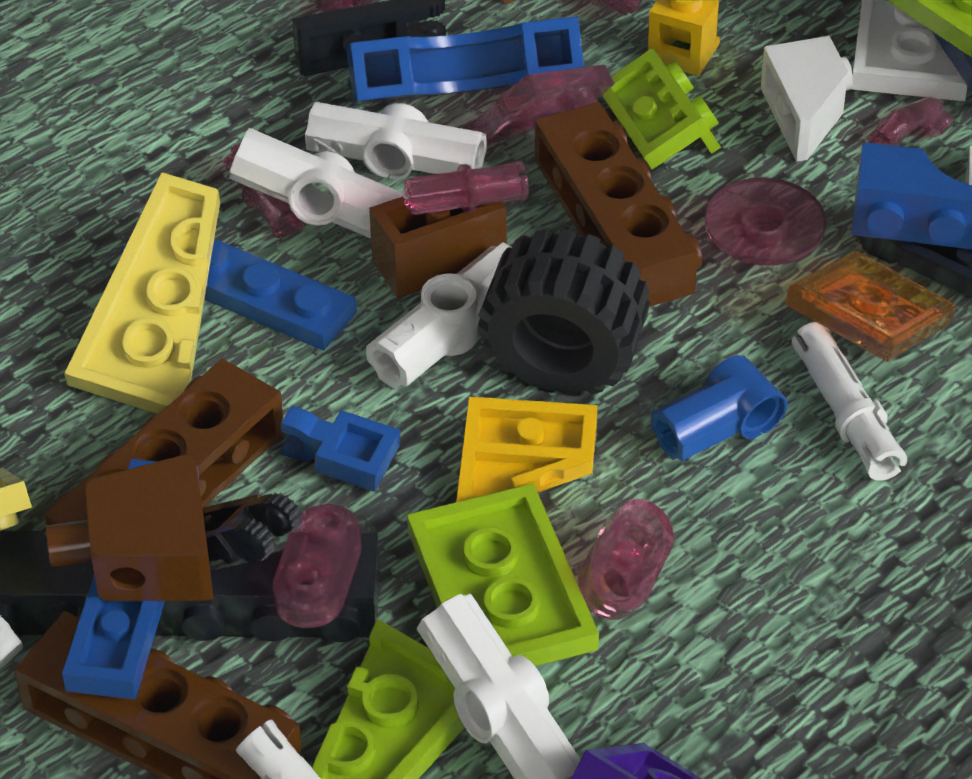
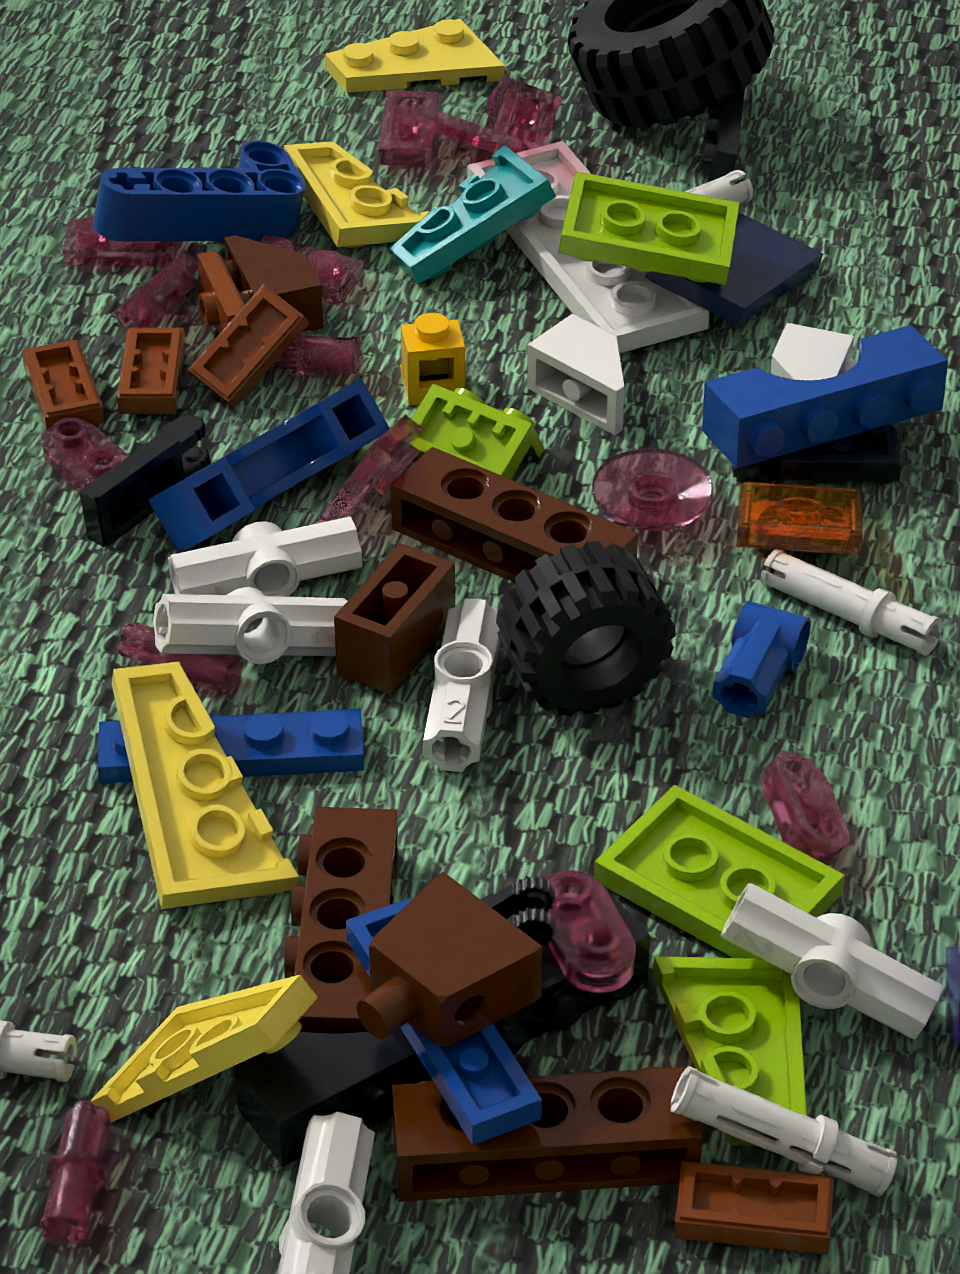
camera: 35 degrees left, 5 degrees down
(346, 450) = (480, 831): blue plate -> none
(466, 188) = (418, 558): clear pink axle -> none
(524, 444) = (628, 762): yellow wing -> none
(903, 120) = (675, 364): clear pink arm -> none

